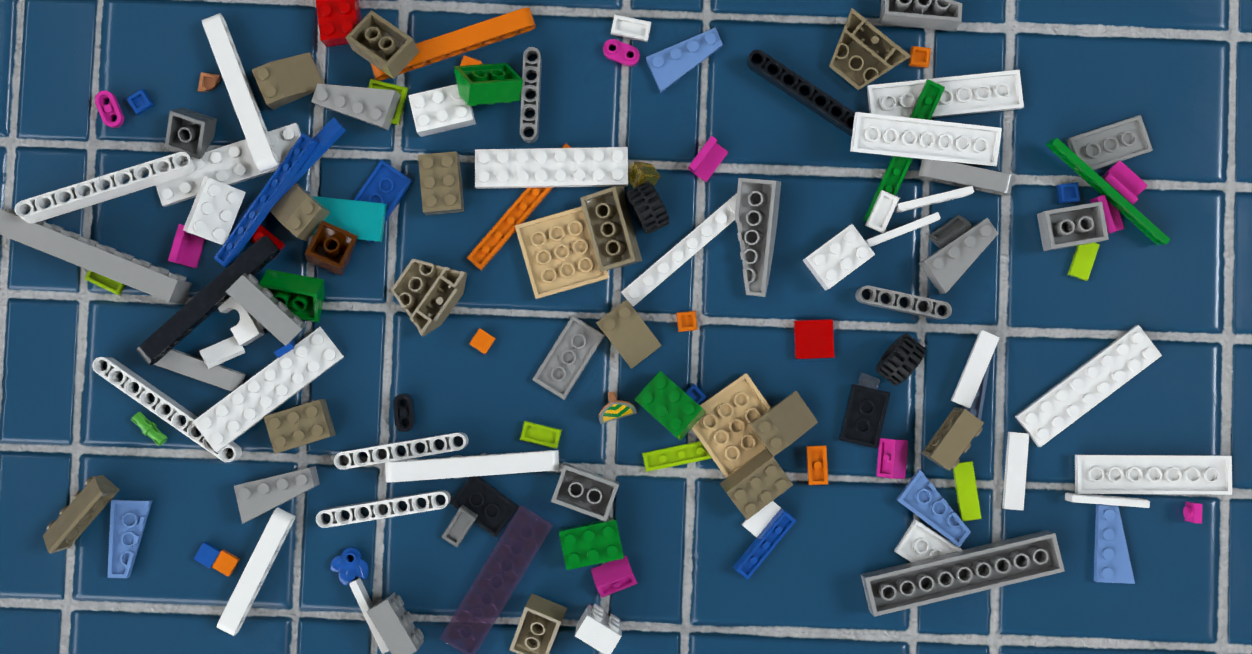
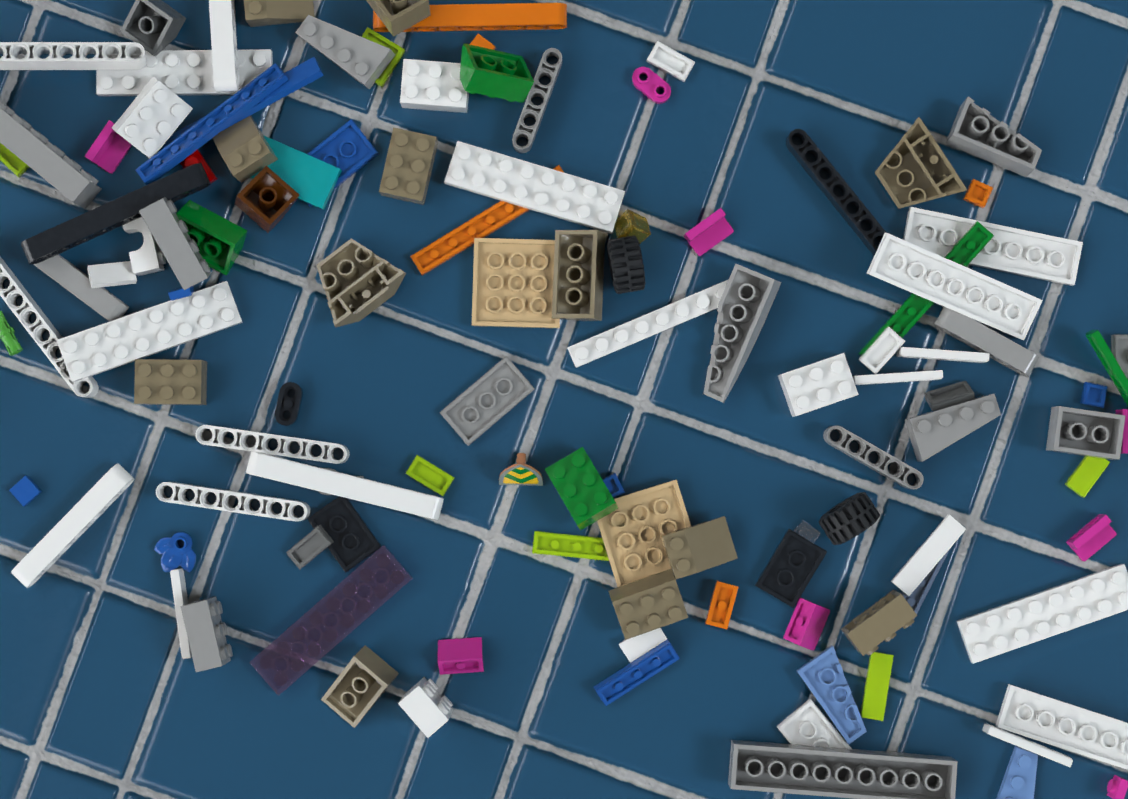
camera: 15 degrees right, 0 degrees up
(225, 563) = (42, 506): orange tile -> none
(267, 493) = (116, 444): light grey wedge -> none
(482, 341) = (398, 353): orange tile -> none
(585, 492) = (458, 553): light grey brick -> none
(591, 543) = (447, 611): green brick -> none
(628, 334) = (561, 396): dark tan slope -> none
(674, 62) = (714, 112): medium blue wing -> none
(686, 321) = (629, 402): orange tile -> none
(813, 339) = (762, 466): red tile -> none
(1015, 471) = (937, 681): white tile -> none
(1104, 311) = (1092, 537): none -> dark pink panel

